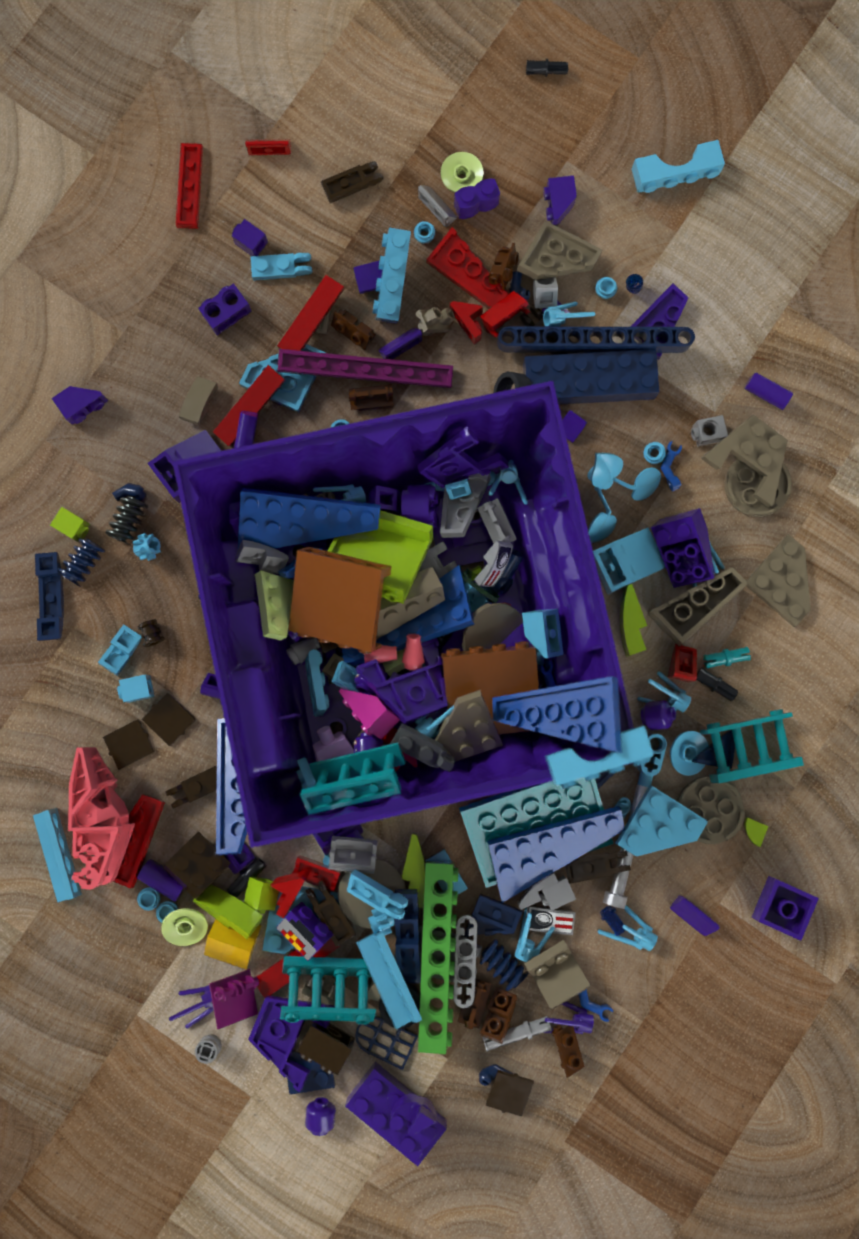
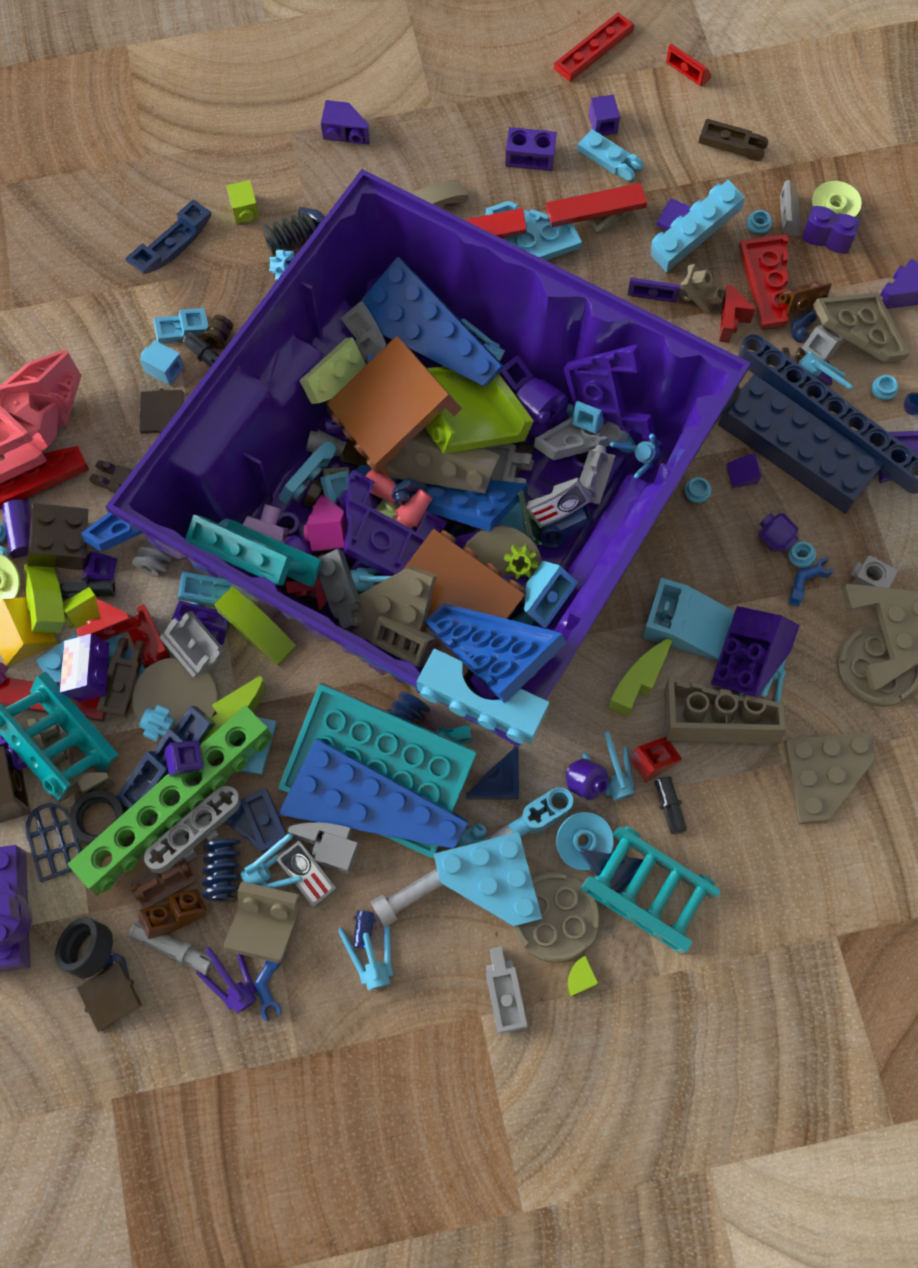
camera: 45 degrees right, 15 degrees down
(81, 561) = (222, 233): dark blue piece -> none
(128, 744) = (109, 402): dark brown piece -> none
(156, 655) = (202, 350): none -> black axle
(333, 693) = (313, 494): none -> dark brown tile
(345, 324) = (621, 236): reddish brown hinge -> none
(365, 368) = (582, 256): magenta tile -> none
(377, 895) = (175, 693): medium azure hinge -> none
(388, 980) = (108, 777): medium azure fence -> none
(398, 641) = (402, 490): none -> dark blue arm
(423, 929) = (183, 757): none -> dark purple slope
(460, 1091) = (96, 954): none -> black tyre
(498, 737) = (425, 640): none -> dark tan slope
(503, 311) = (773, 330): red hinge -> none
(508, 624) = (529, 562): none -> lime gear
(568, 1049) = (201, 1006): reddish brown hinge -> none
(594, 867) = (394, 861): dark brown hinge -> none
(602, 475) = (732, 513): medium azure plant -> none
(630, 450) = (778, 532): none -> dark purple head
(693, 916) = (443, 1000): dark purple slope -> none
(723, 880) = (505, 993): none -> light grey hinge
(726, 657) = (704, 790): teal pin -> none
(784, 908) = (539, 1073): dark purple brick -> none

